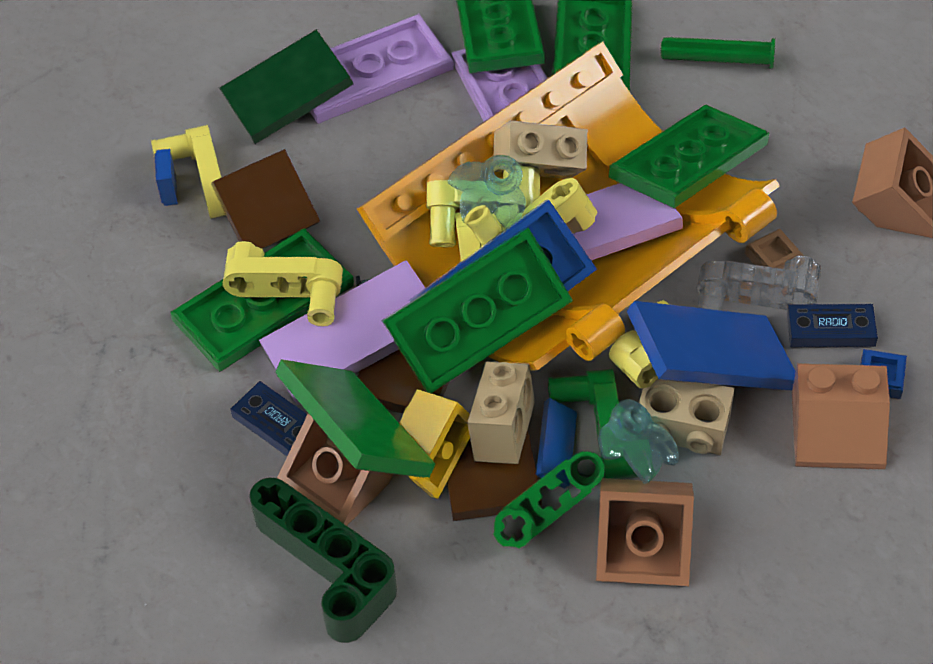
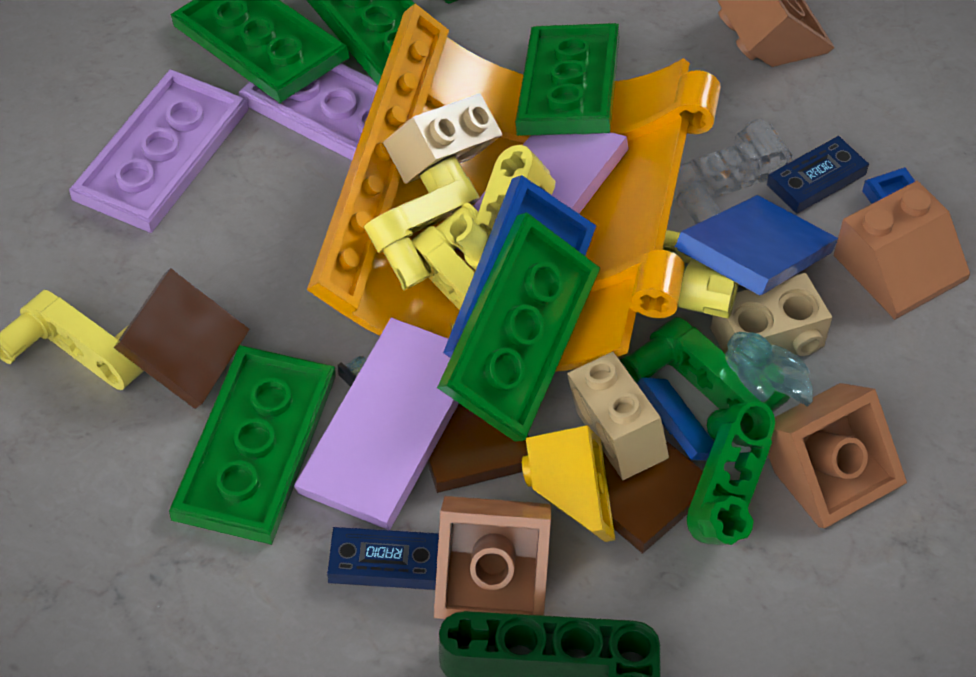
camera: 40 degrees left, 0 degrees up
(166, 177) = (40, 369): blue tile -> none
(253, 275) = (242, 420): light yellow beam -> none
(286, 86) = (93, 208): dark green tile -> none
(355, 419) = (497, 502): green tile -> none
(483, 188) = (440, 199): clear light blue plate -> none
(772, 250) = (717, 138): medium nougat tile -> none

